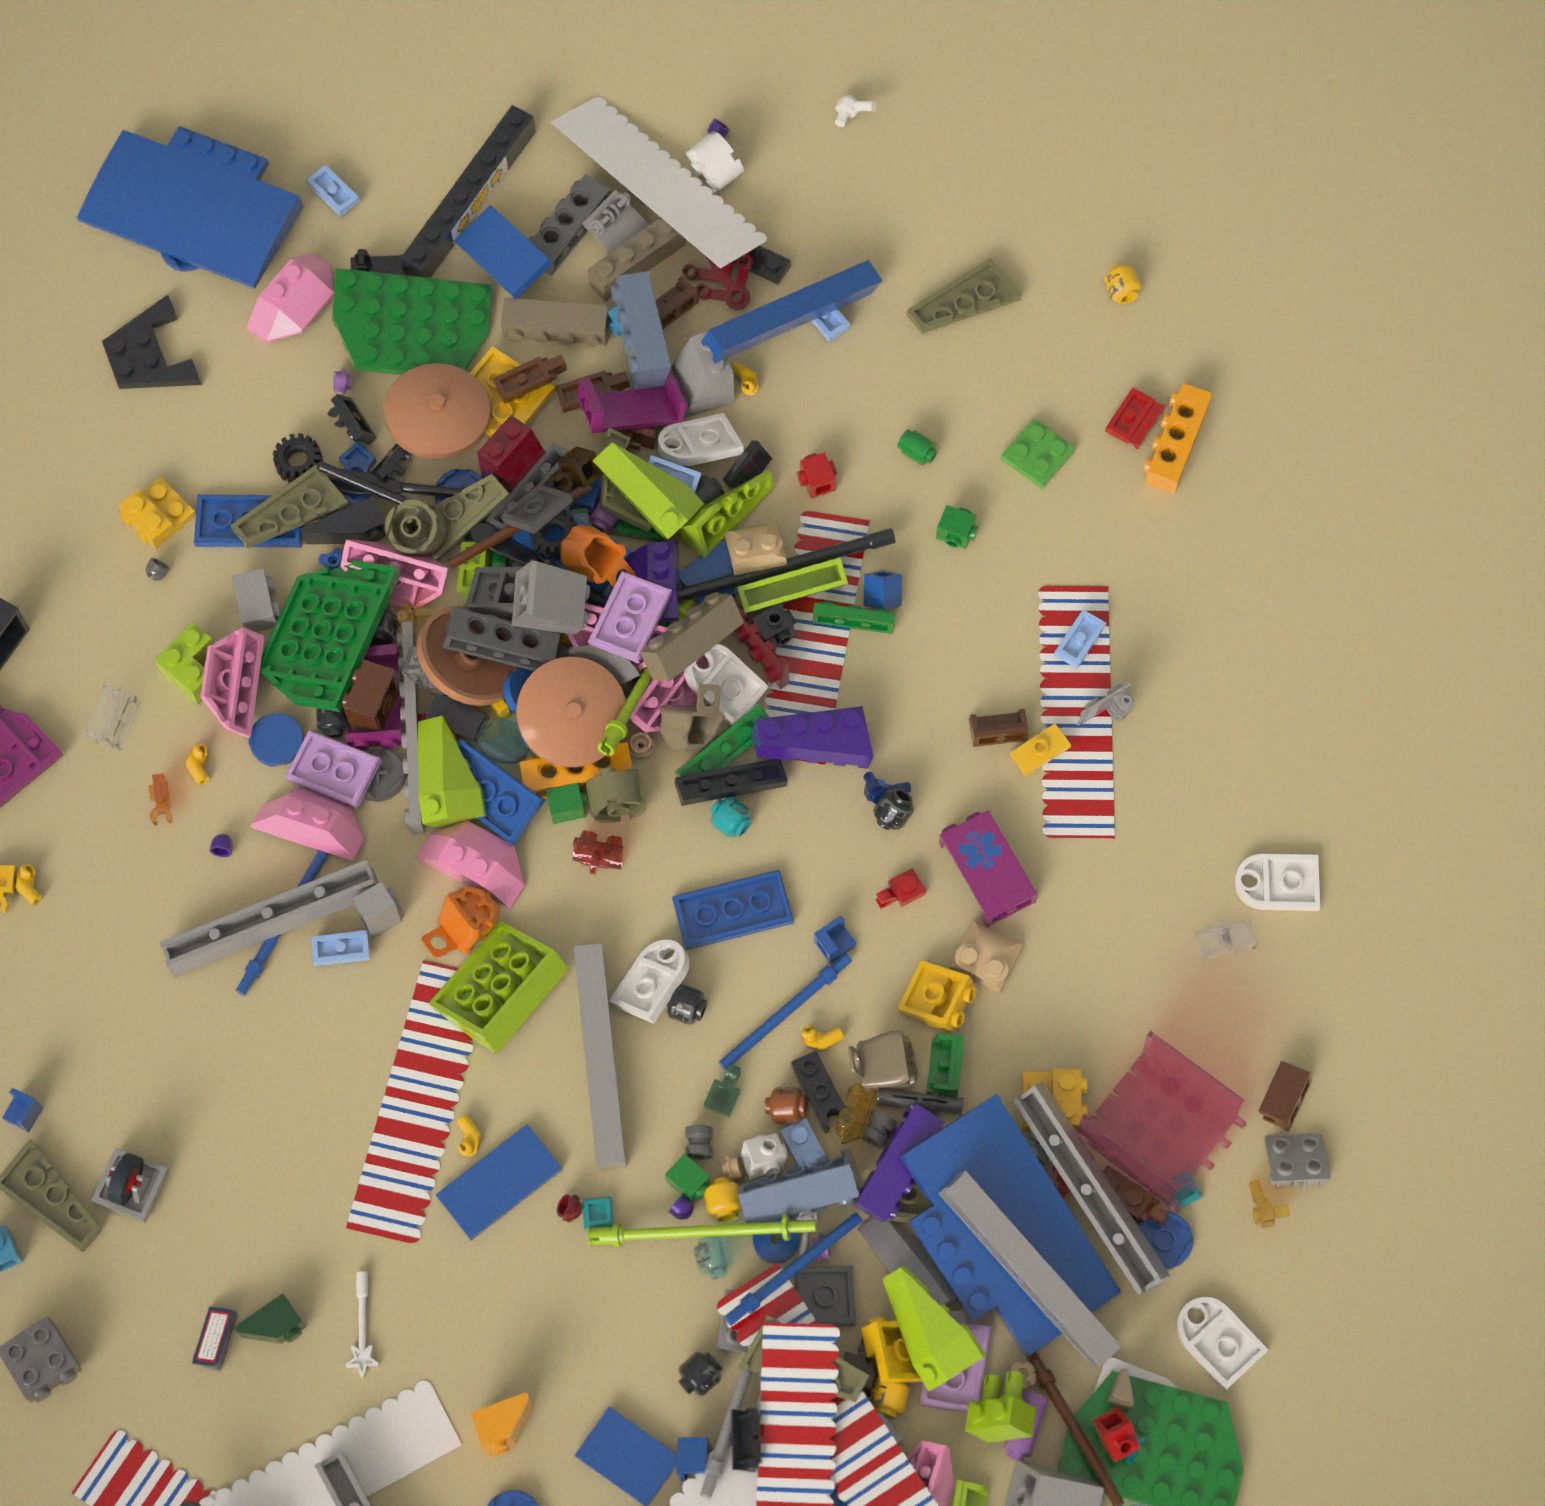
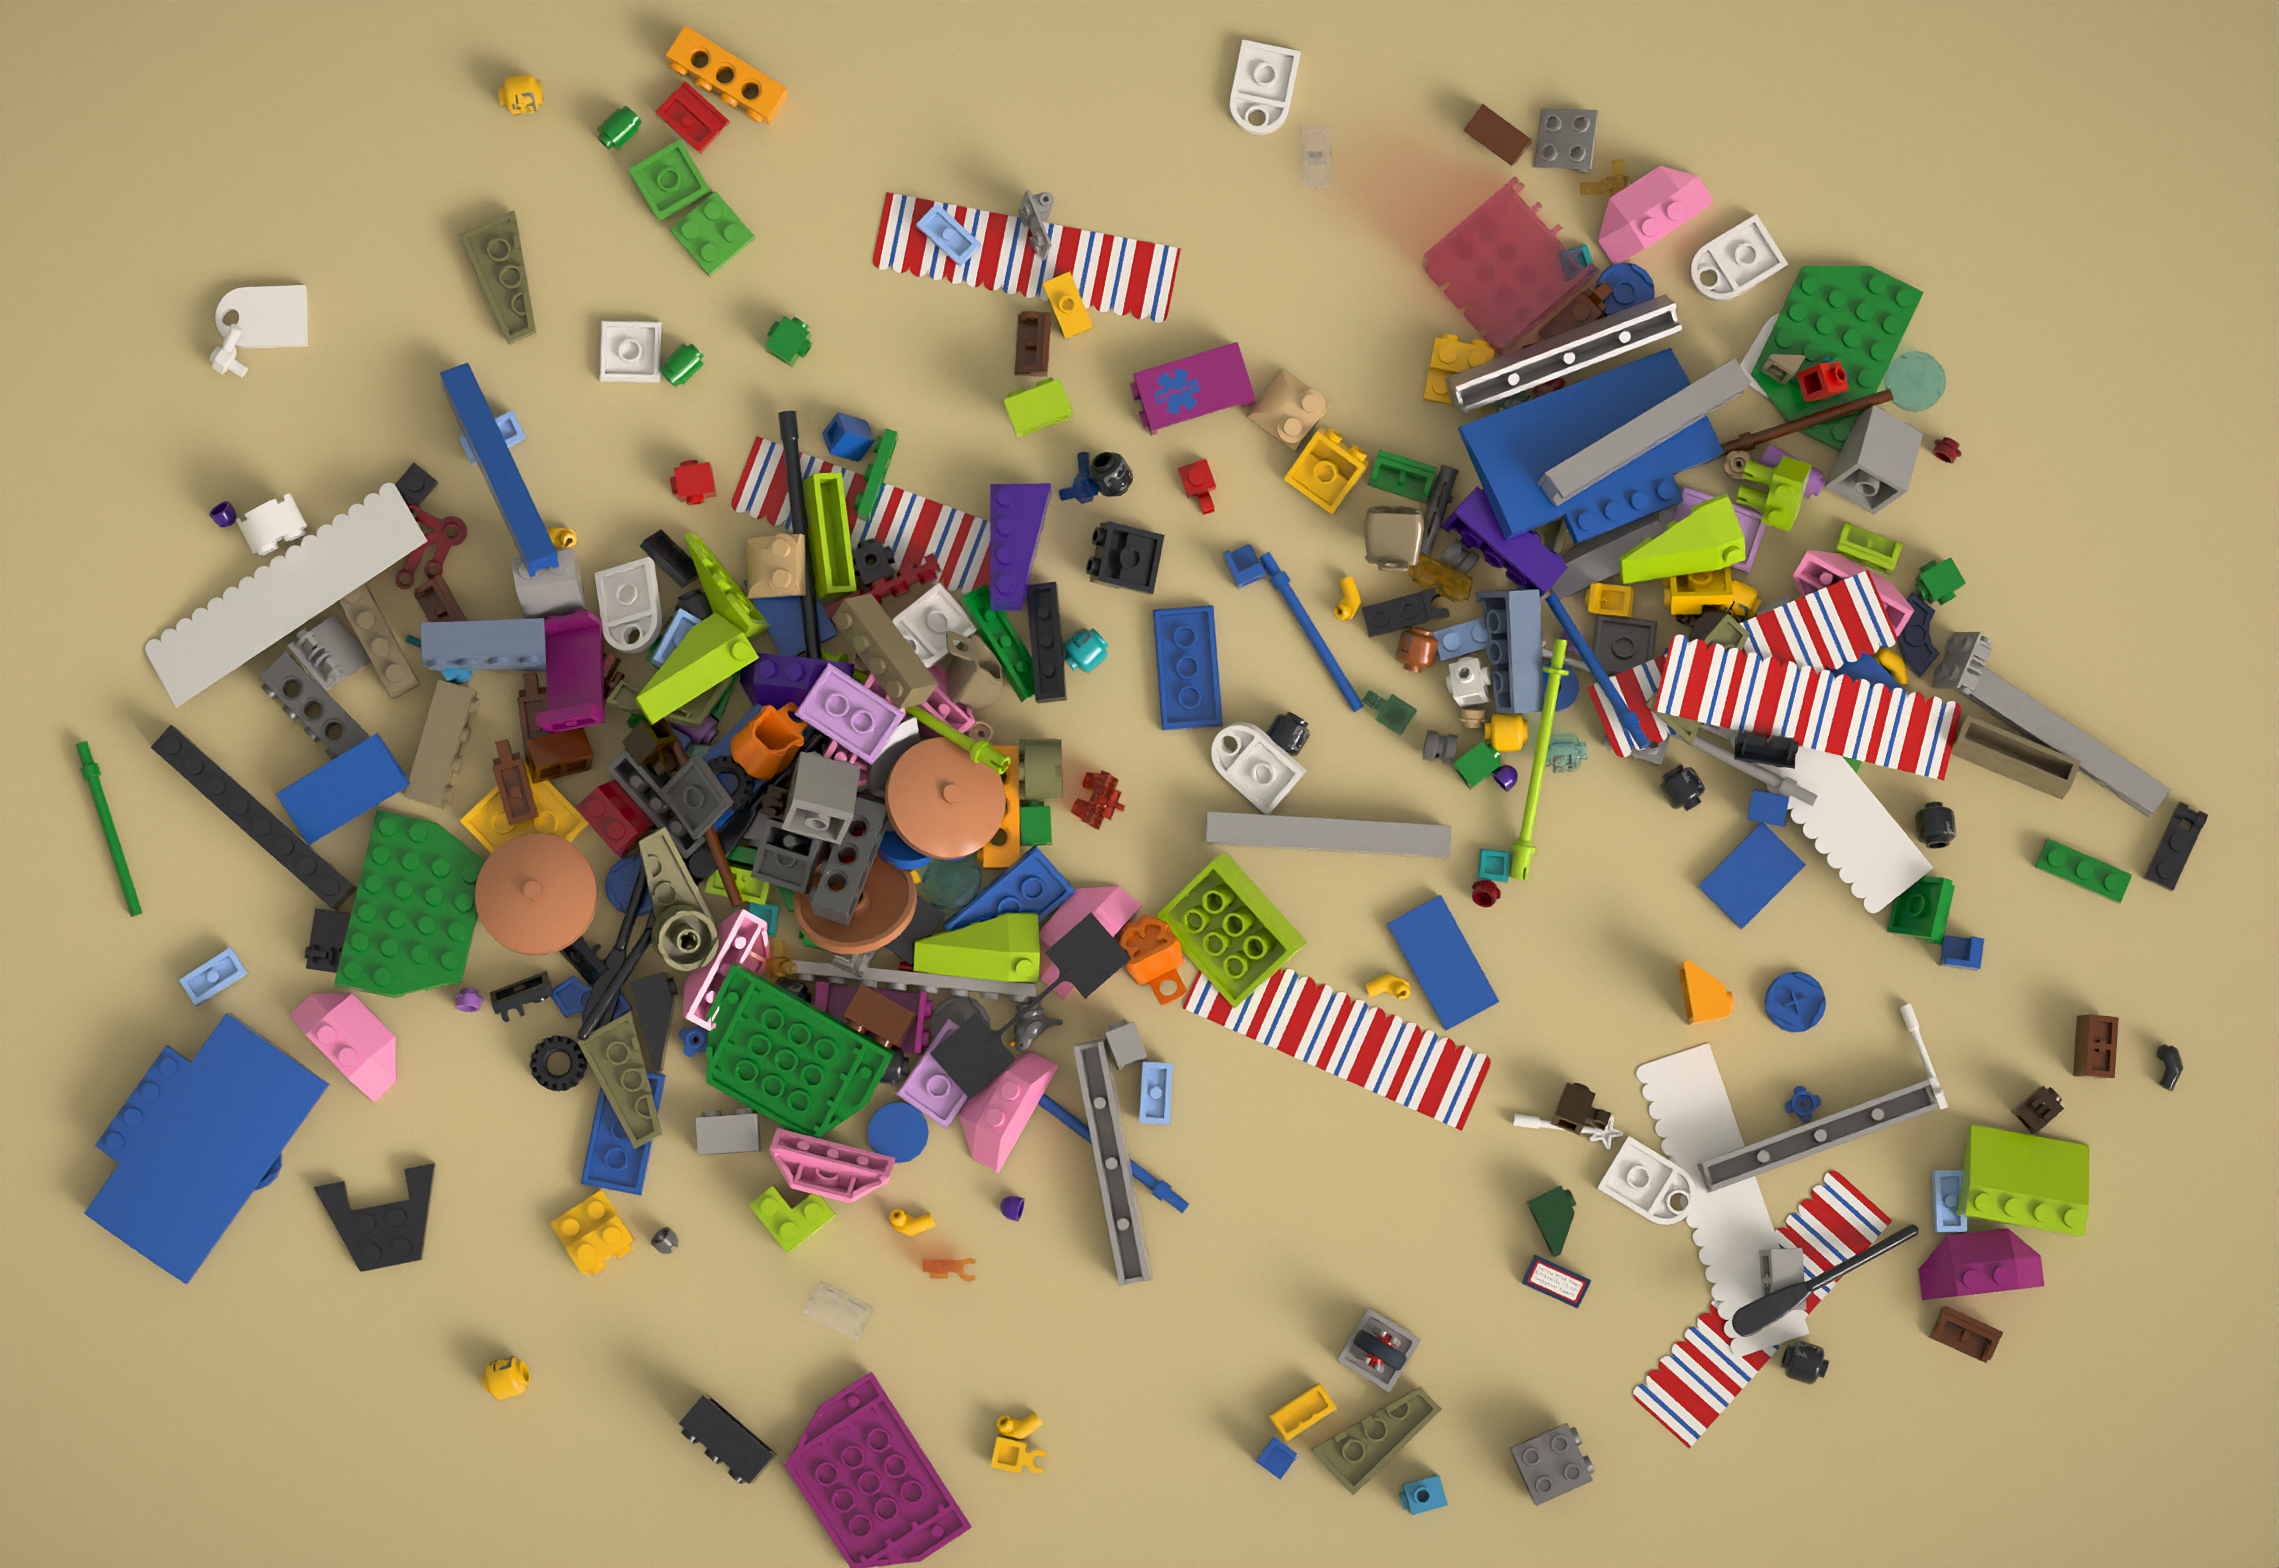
camera: 80 degrees left, 15 degrees up
(24, 465) = (506, 1377): none -> yellow head
(66, 1127) = (1302, 1412): none -> yellow plate
(317, 1407) = (1647, 1182): none -> white tile
(377, 1325) = (1576, 1109): none -> dark brown brick
(386, 830) = (1031, 1026): none -> dark grey animal
(446, 857) = (976, 1052): none -> black hinge
(448, 598) = (768, 913): none -> teal tile
(487, 75) = (91, 772): none -> green bar
(560, 408) = (558, 755): none -> reddish brown hinge
(821, 836) = (1125, 557): none -> black plate
(866, 1273) = (1610, 599): none -> yellow bracket
(891, 134) = (267, 316): none -> white tile
(921, 407) = (630, 351): none -> white tile
(938, 731) = (1037, 407): none -> lime brick
(1076, 410) = (669, 180): none -> bright green plate
(1111, 363) = (618, 128): none -> green brick
(1248, 1248) = (1650, 211): none -> bright pink wedge

